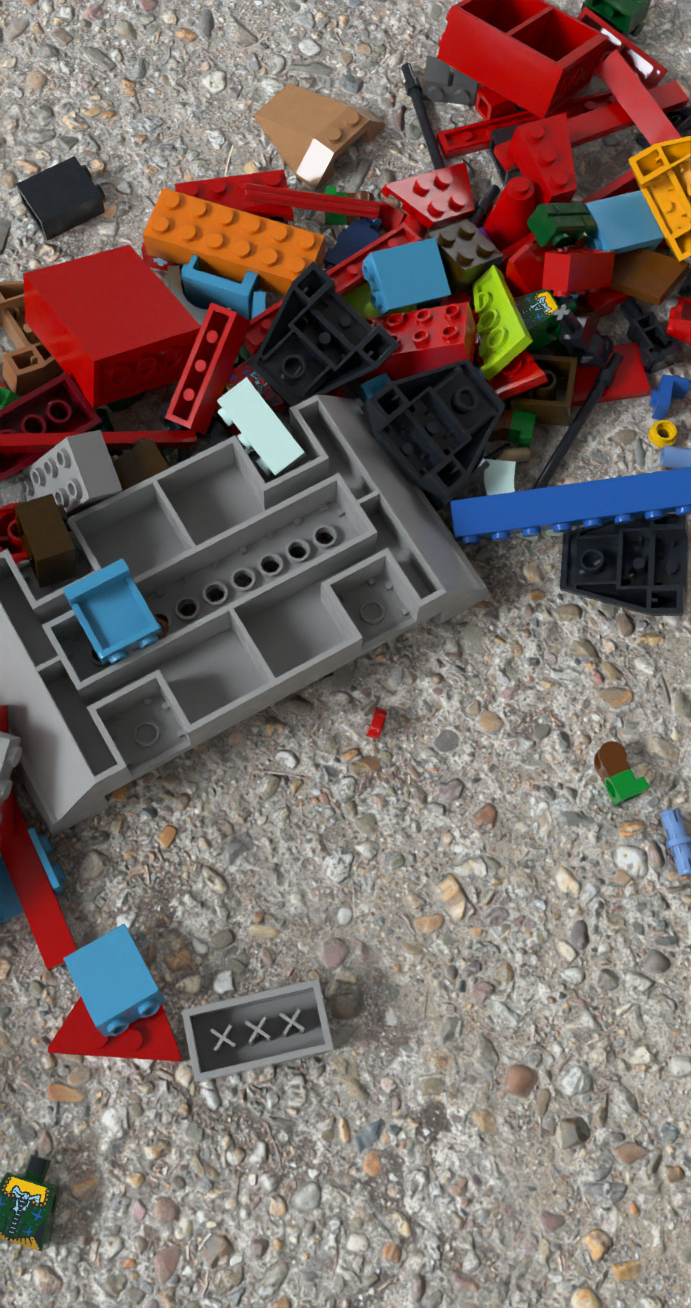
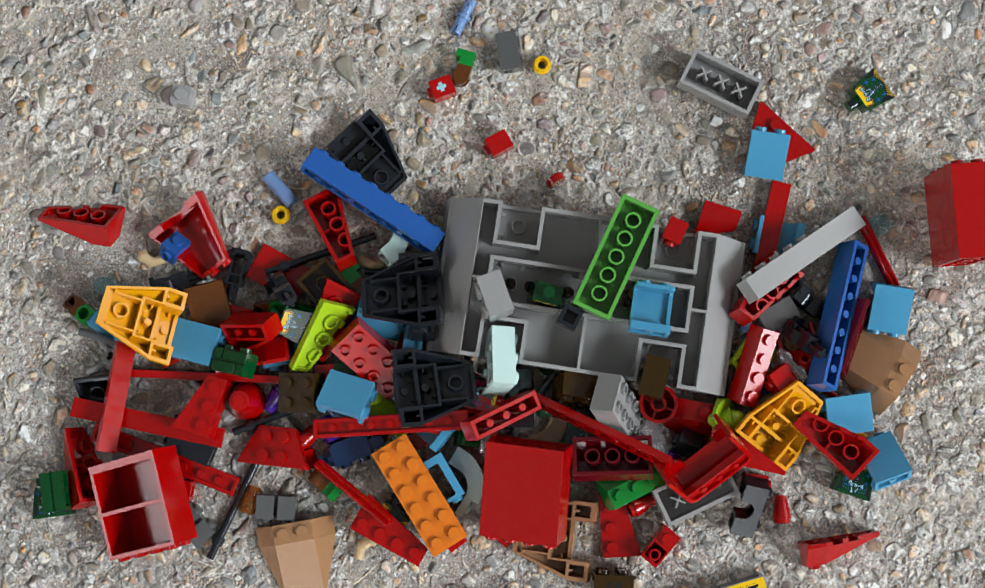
camera: 140 degrees left, 15 degrees up
(119, 840) = (717, 218): none -> red slope
(140, 414) = (552, 432): none -> tan tile
(160, 748) = (674, 232): none -> red brick
(213, 517) = (569, 317): none -> black brick
(213, 634) = (615, 257): none -> bright green brick
(263, 544) = (547, 294): none -> dark green torso
(327, 449) = (494, 295): none -> light grey brick
(381, 151) = (276, 507): none -> dark grey piece
(414, 138) = (248, 502): none -> clear orange cone
(487, 710) = (498, 144): none -> red brick
(527, 853) = (541, 59): none -> yellow plate
(579, 843) = (509, 52): none -> dark grey hinge
(587, 446) = (330, 222): none -> red wedge
(620, 722) = (441, 89): none -> red brick
(668, 387) = (264, 233): blue bracket -> none

